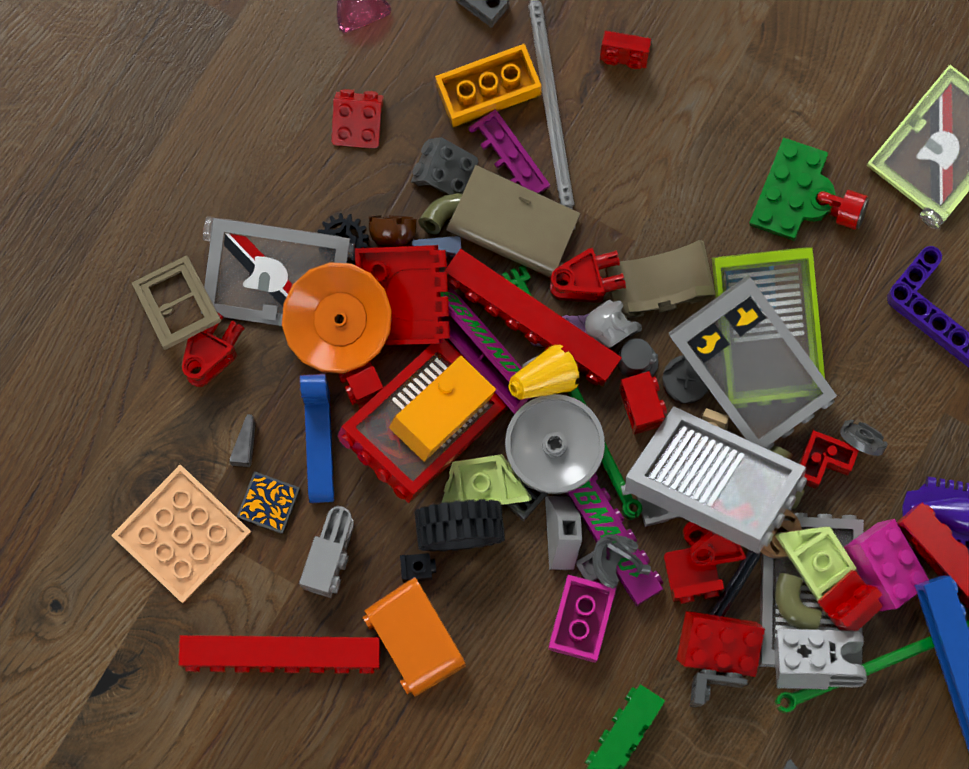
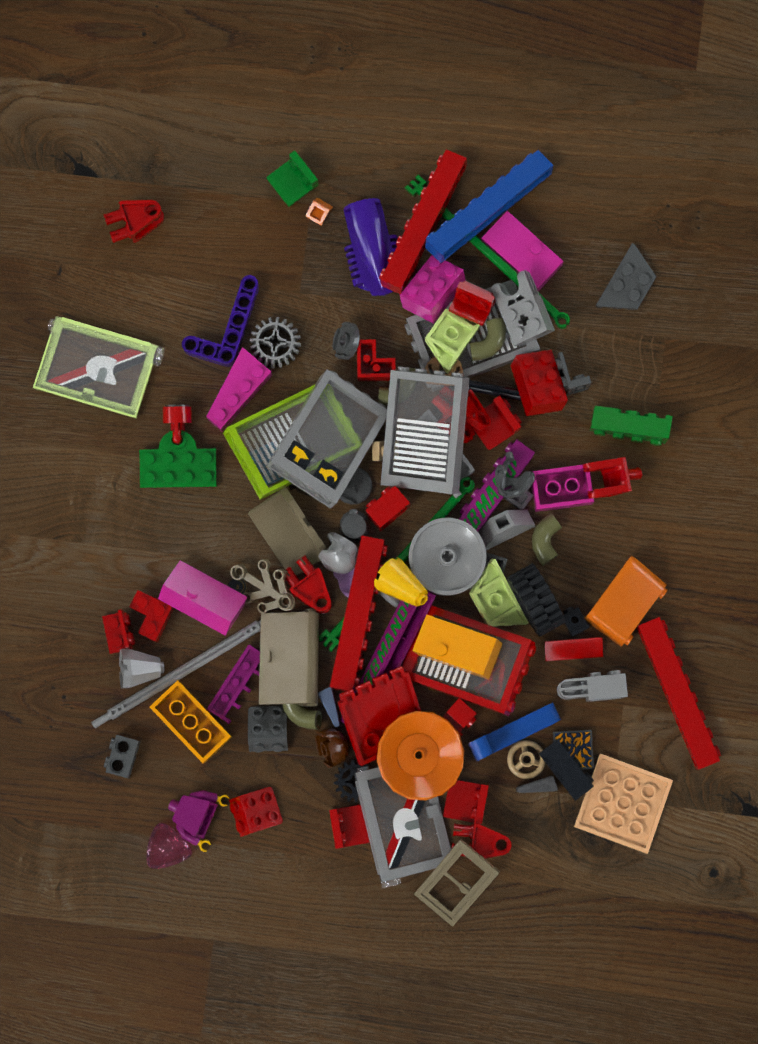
camera: 110 degrees left, 5 degrees up
(247, 481) = (567, 769): none -> black wedge
(263, 355) = (466, 802): none -> red bracket
(279, 436) = (515, 769): none -> tan piece
(295, 208) = (348, 826): none -> red bracket
(381, 49) = (194, 815): none -> magenta torso
(385, 553) = (573, 649): none -> red slope
(532, 571) = (542, 539): none -> olive cylinder
(566, 686) = (615, 477): none -> red piece
(574, 52) = (138, 668): none -> light grey cone
(583, 240) = (266, 587): none -> dark tan plant
(622, 200) = (238, 585): none -> black tile
(624, 152) = (202, 597): none -> dark pink brick
(626, 96) = (156, 614): none -> red brick
(854, 291) = (240, 386): none -> dark pink wedge
(892, 695) = (522, 249): none -> dark pink brick
(902, 361) = (267, 342): none -> light grey gear

